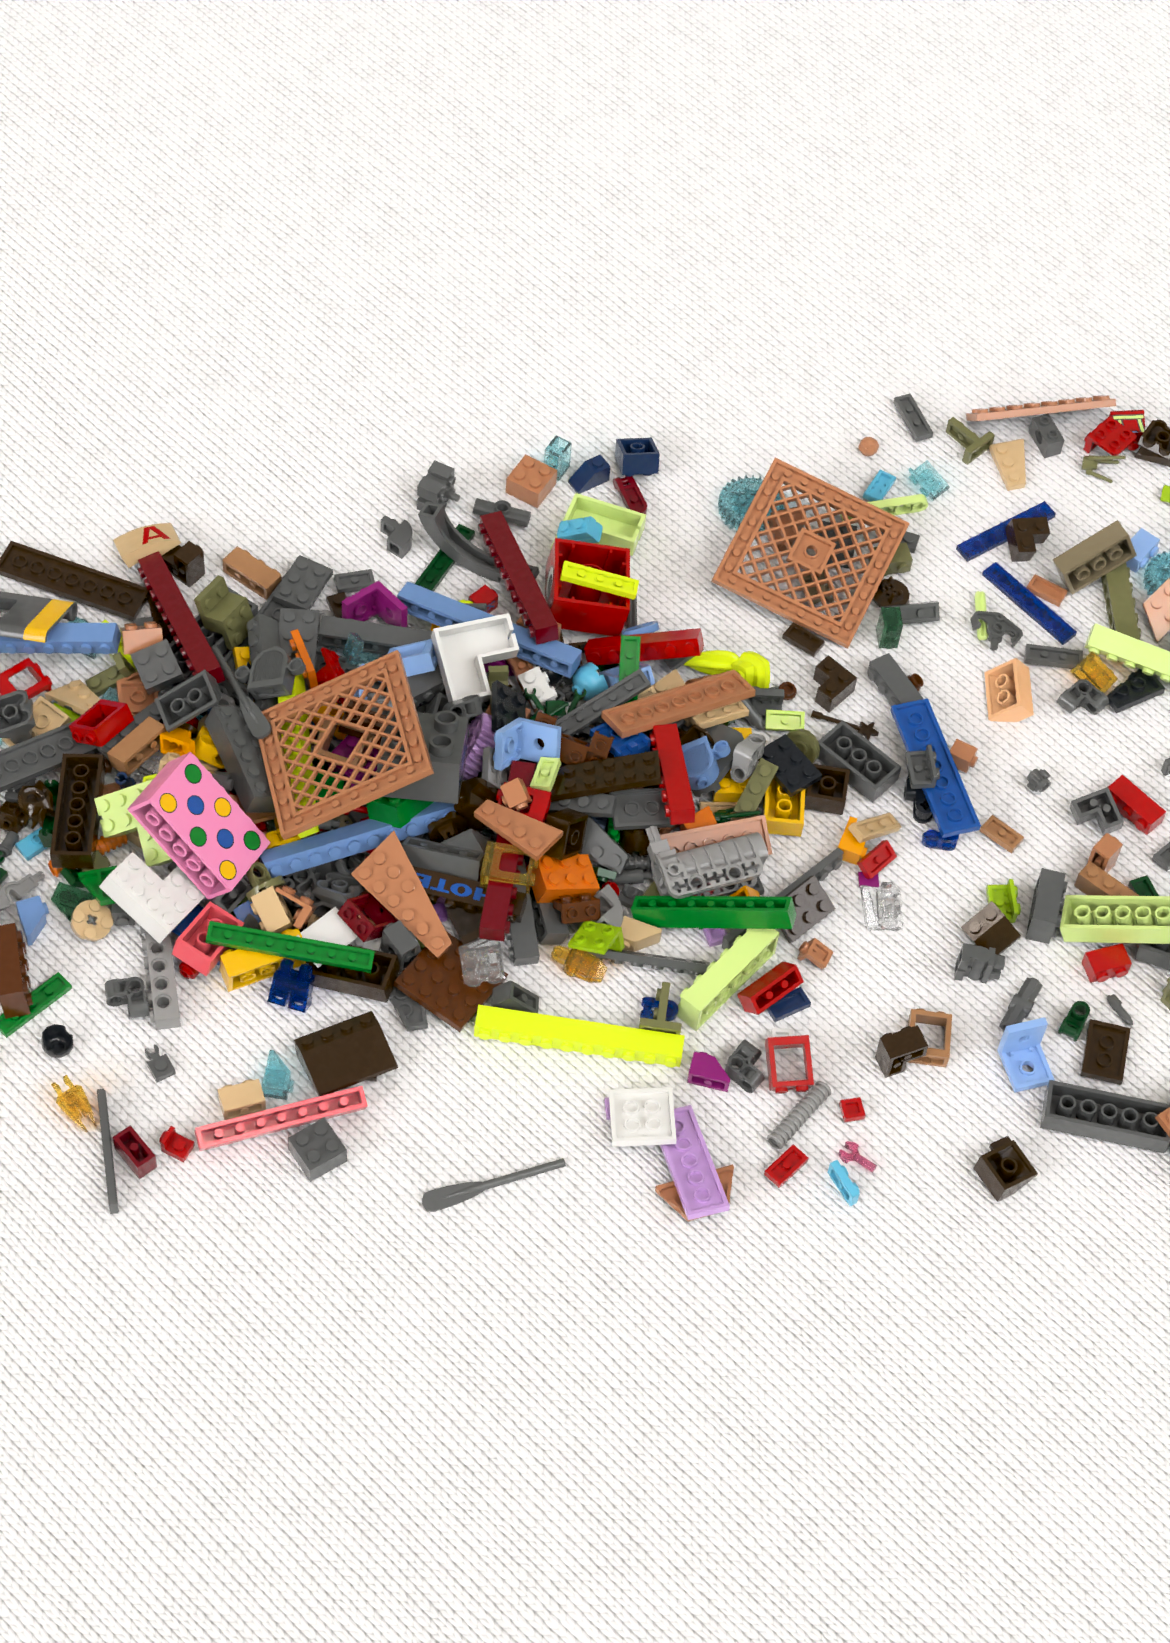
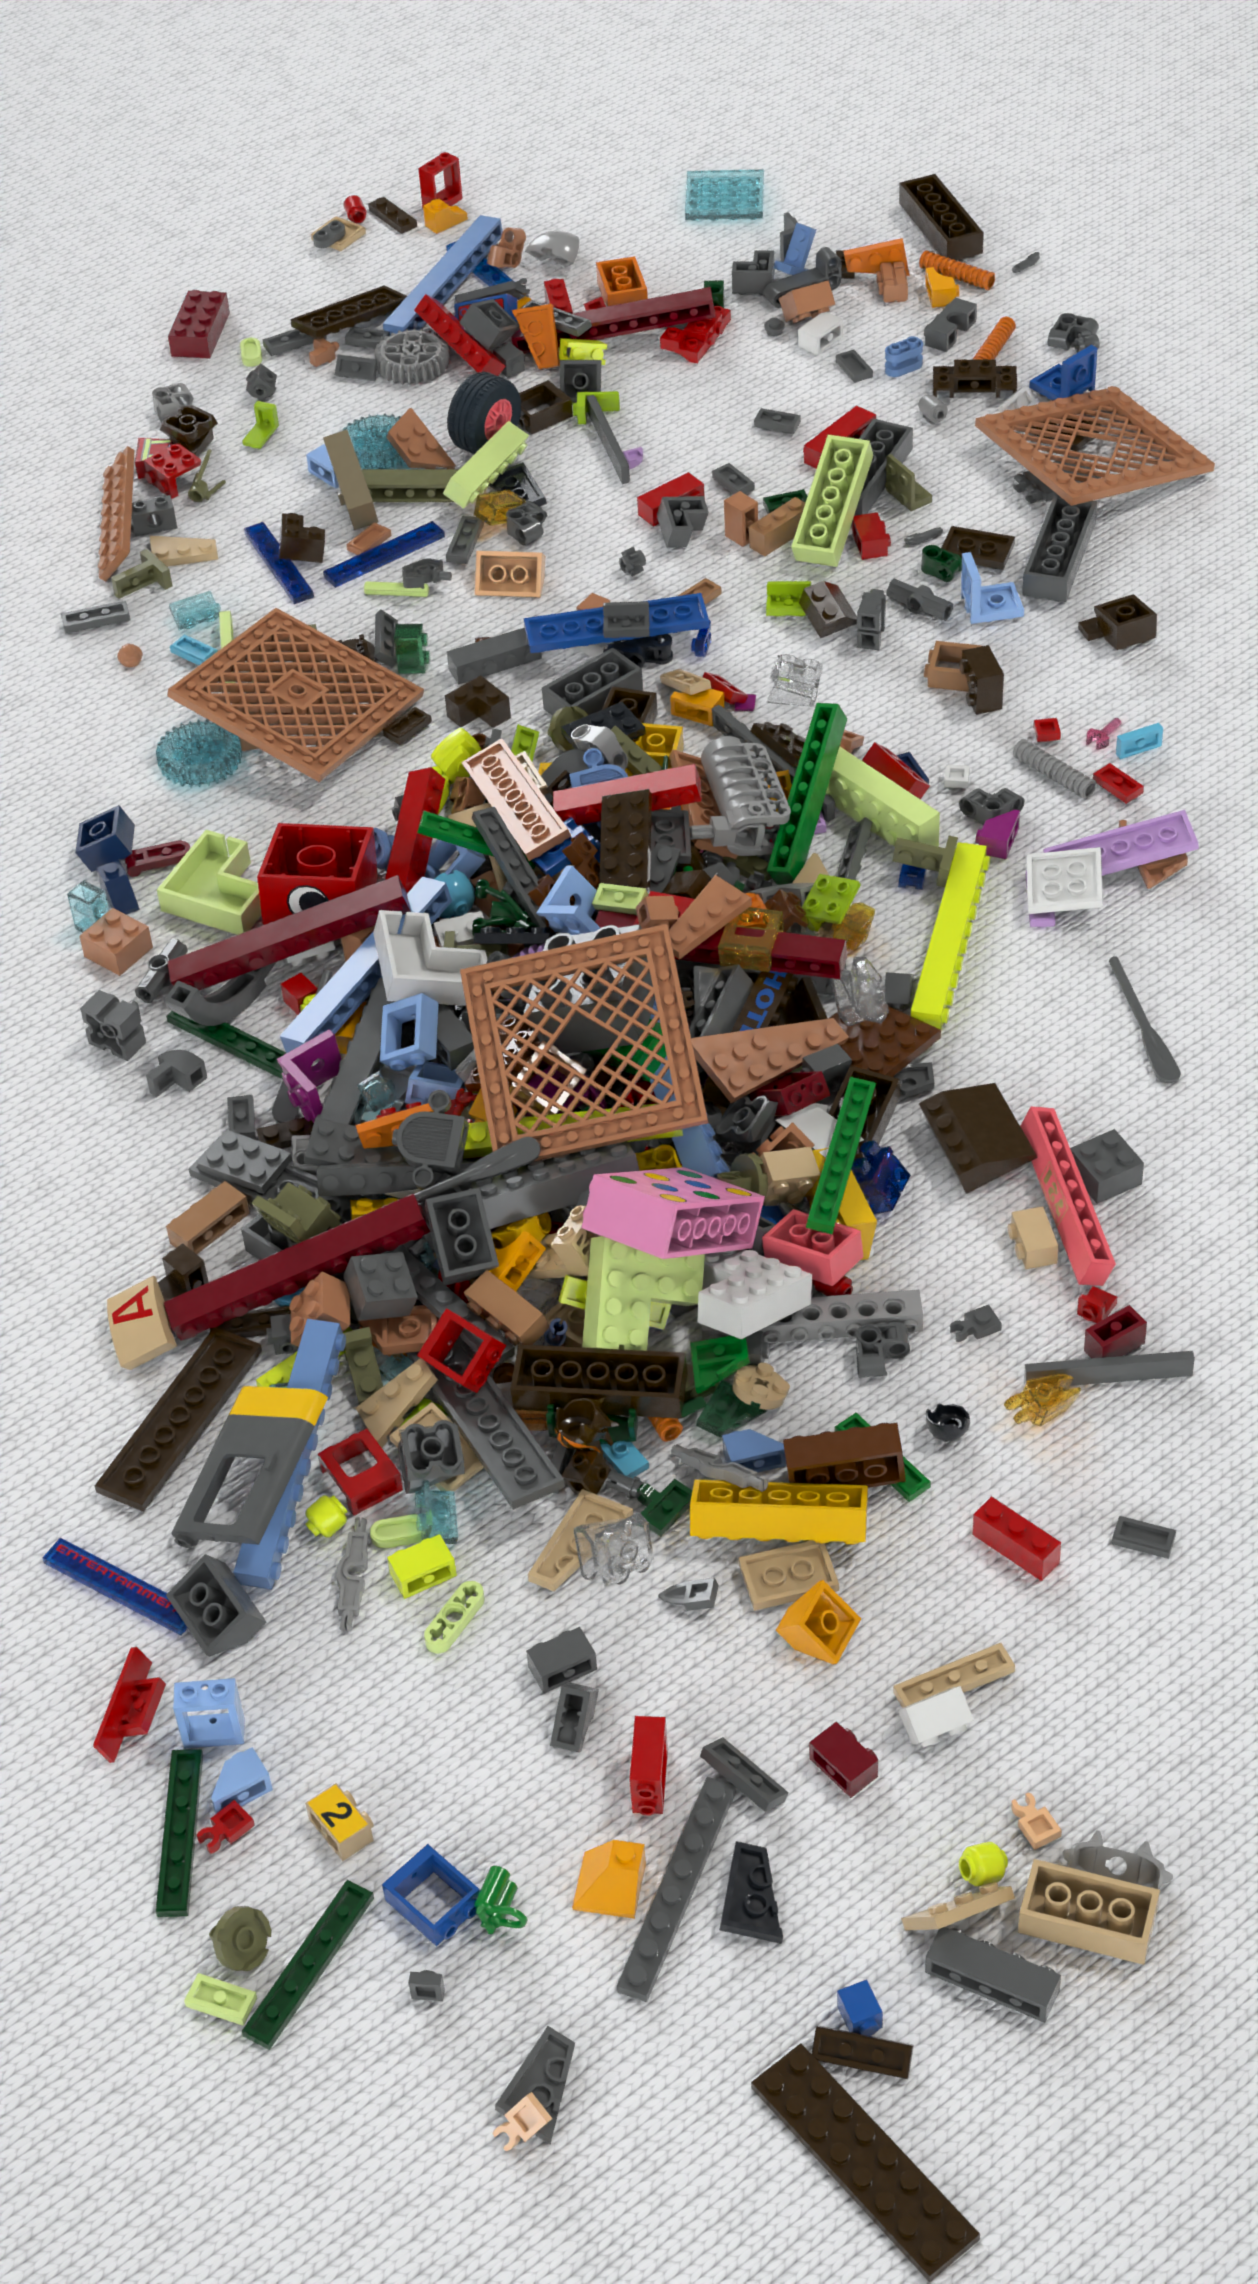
camera: 75 degrees left, 10 degrees down
(277, 1078) = (998, 1203): clear light blue slope -> none
(580, 529) = (226, 881): medium azure brick -> none
(599, 580) = (331, 840): neon yellow plate -> none
(783, 1043) = (990, 778): window -> none
(863, 729) = (537, 692): dark brown piece -> none
(1046, 906) = (800, 560): dark grey brick -> none

